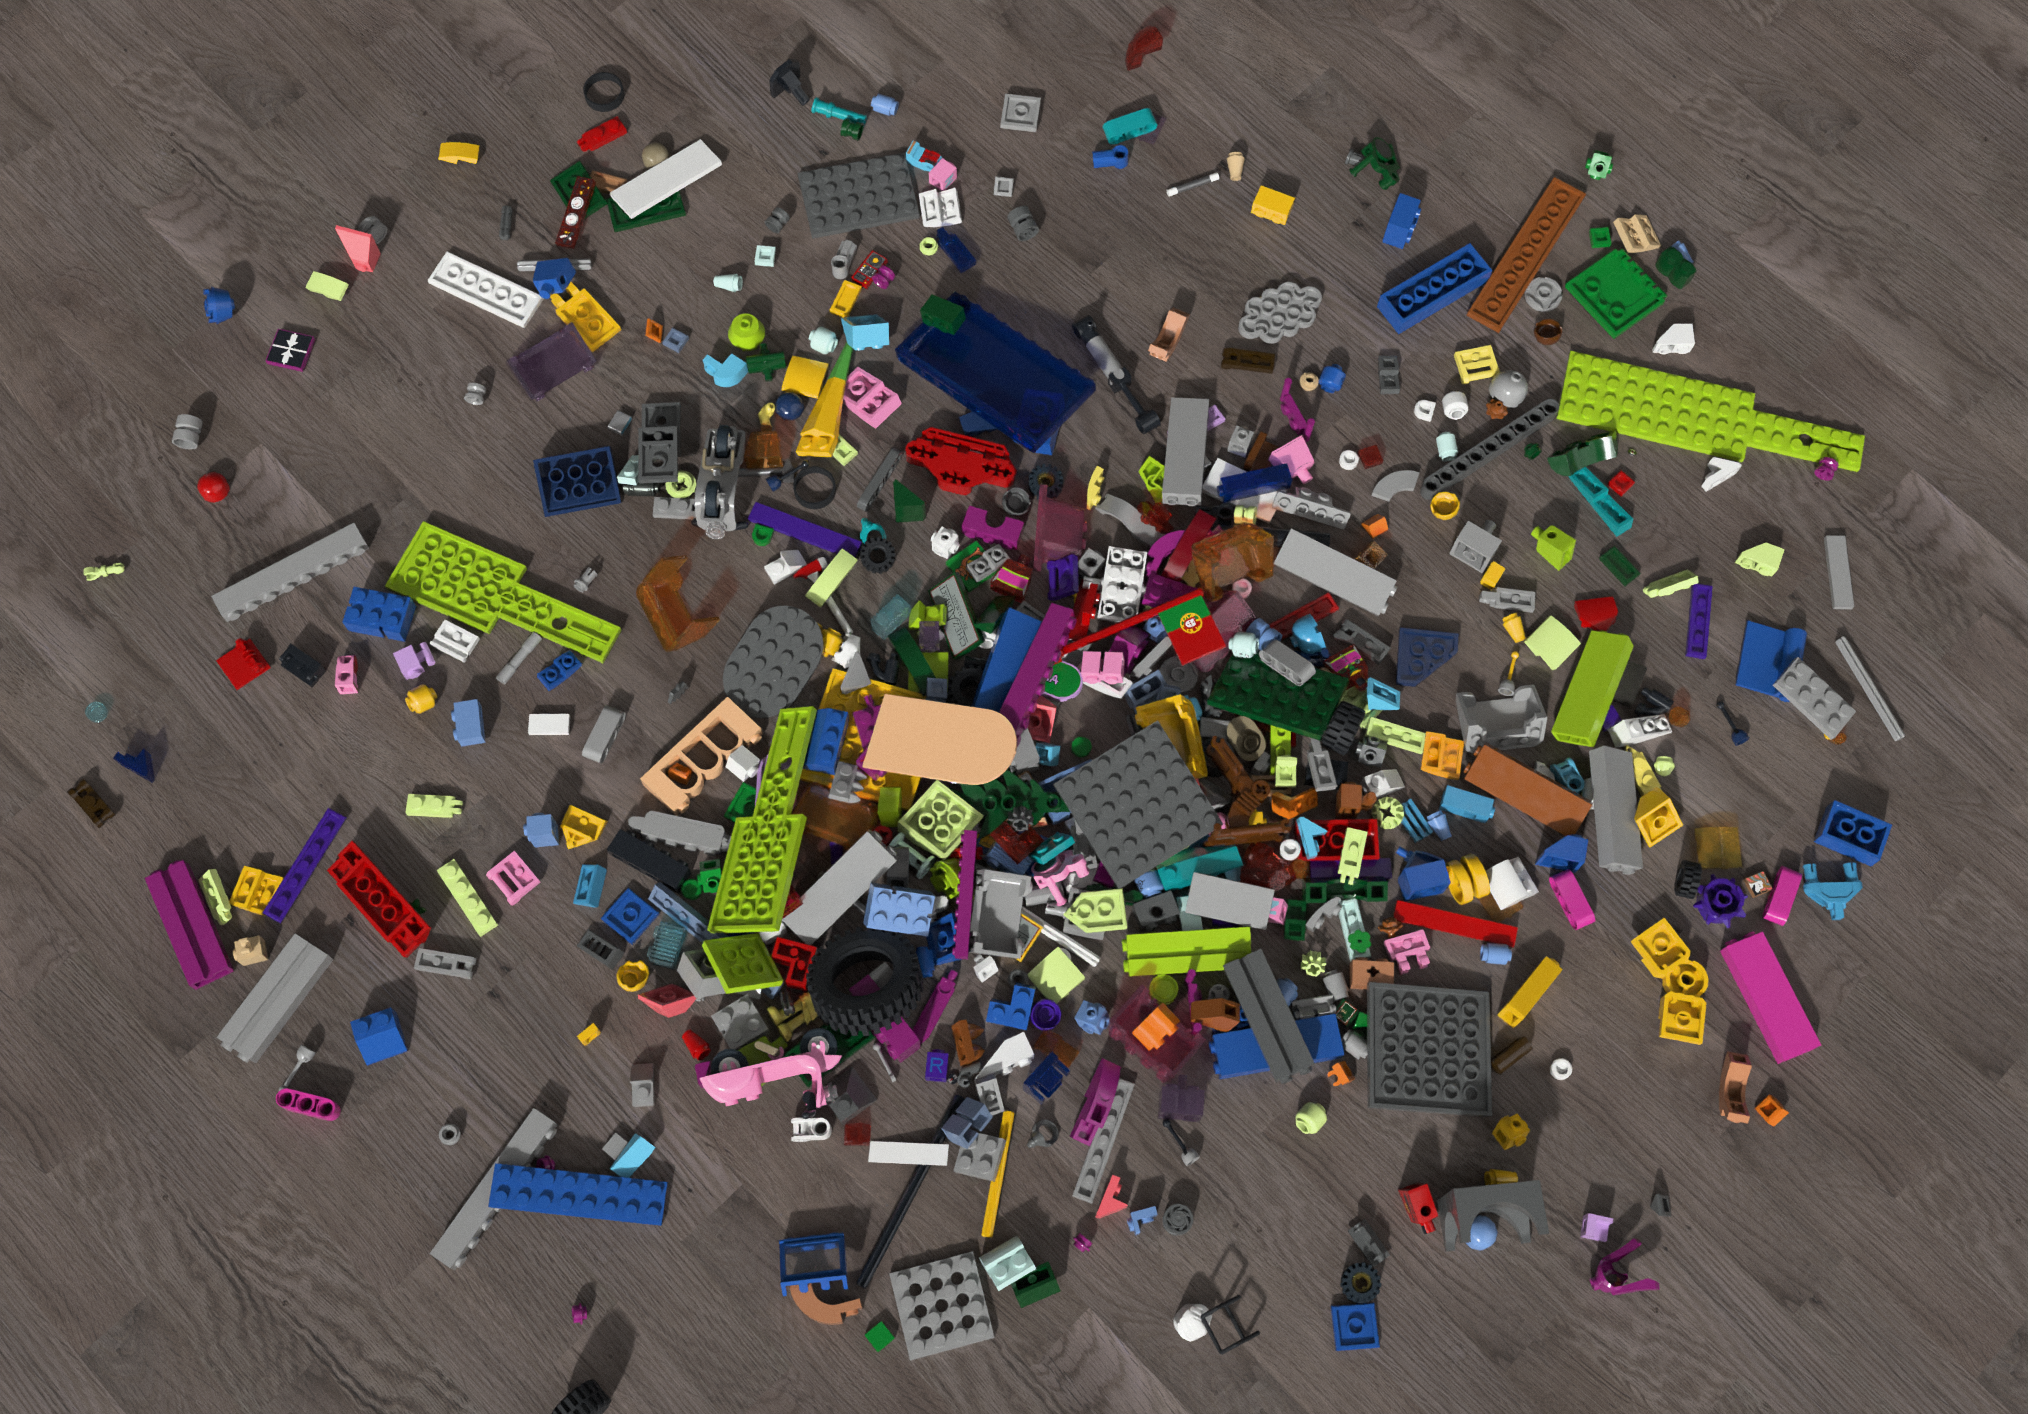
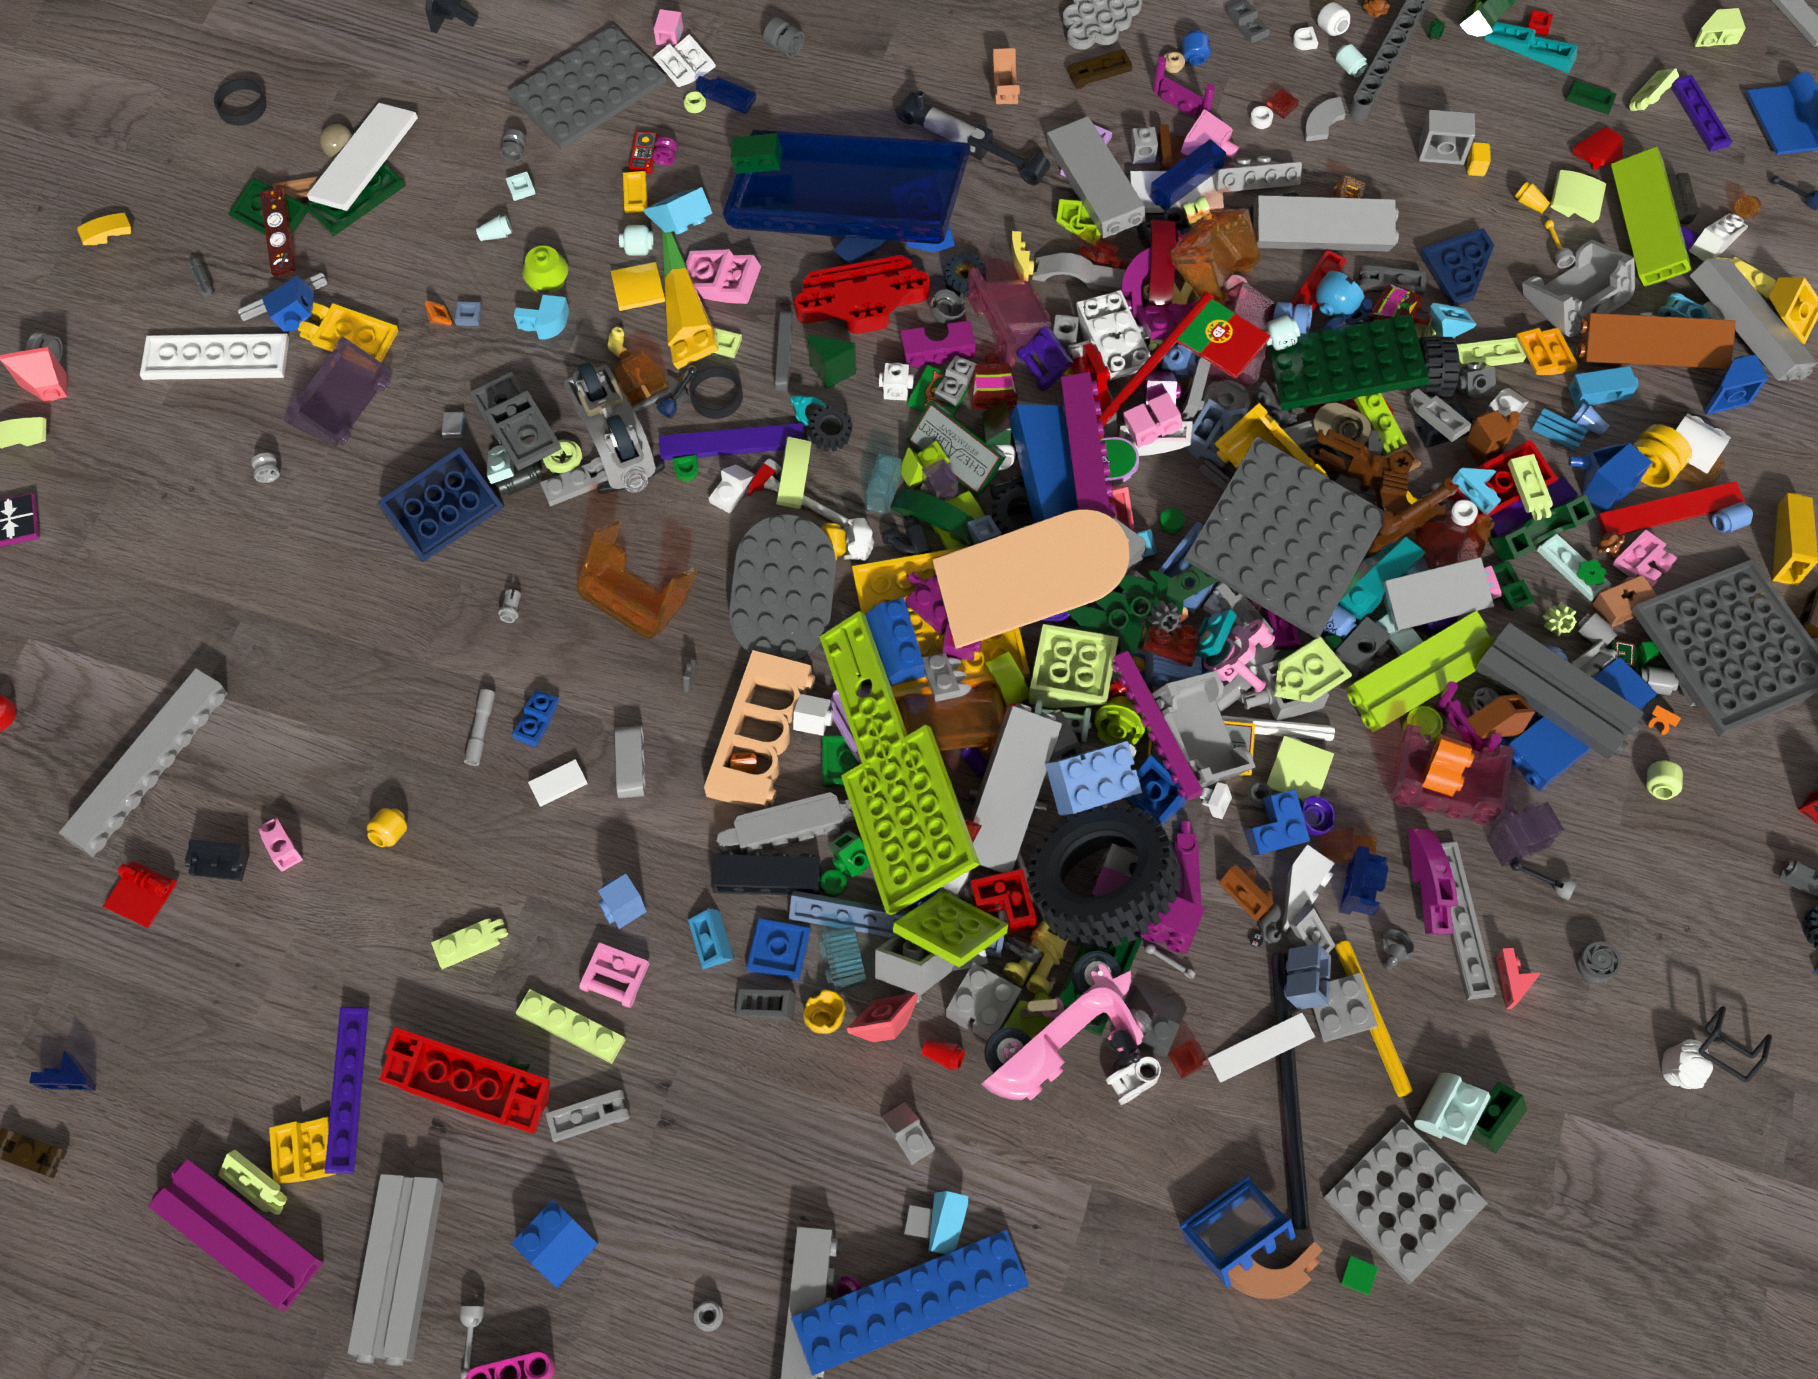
camera: 25 degrees left, 5 degrees down
(250, 950) = (332, 1226): tan brick -> none
(379, 609) = (273, 754): blue piece -> none
(410, 661) = (351, 792): lavender brick -> none
(454, 641) = (391, 744): white plate -> none
(468, 722) = (461, 824): medium blue brick -> none
(485, 586) = (395, 669): lime piece -> none
(581, 827) = (662, 877): yellow slope -> none
(589, 1034) = (811, 1107): yellow tile -> none
(602, 134) = (262, 145): red hinge -> none
(702, 1070) = (972, 1080): magenta slope -> none
(766, 362) = (586, 289): dark green pin -> none
(789, 406) = (638, 322): dark blue hair -> none
(830, 110) = (507, 17): teal pin -> none
(843, 259) = (609, 153): light grey piece -> none
(852, 129) = (542, 25): dark green wheel -> none
(856, 676) = (886, 559): light grey slope -> none
(921, 157) = (636, 21): medium azure leg -> none
(937, 1066) = (1233, 933): dark purple brick -> none
(1003, 186) = (739, 13): light grey slope -> none
(1082, 1243) = (1514, 1043): magenta plate -> none
(1092, 1017) = (1369, 792): medium blue brick -> none
(1144, 1215) = (1556, 984): medium blue bracket -> none
(1285, 771) = (1403, 438): yellowish green bracket -> none
(1287, 662) = (1340, 327): light grey beam -> none
(1293, 806) = (1431, 472): orange bracket -> none
(1328, 909) = (1540, 557): light grey slope -> none
(1375, 525) = (1330, 165): orange slope -> none
(1396, 809) = (1539, 424): yellowish green gear -> none
(1445, 505) = (1388, 115): yellow hair -> none
(1509, 599) = (1509, 174): light grey hinge -> none
(1554, 545) = (1520, 102): lime torso -> none
(1572, 899) = (1768, 428): dark pink beam -> none
(1656, 698) = (1721, 202): black plant -> none
(1664, 765) = (1765, 259): yellowish green plate -> none

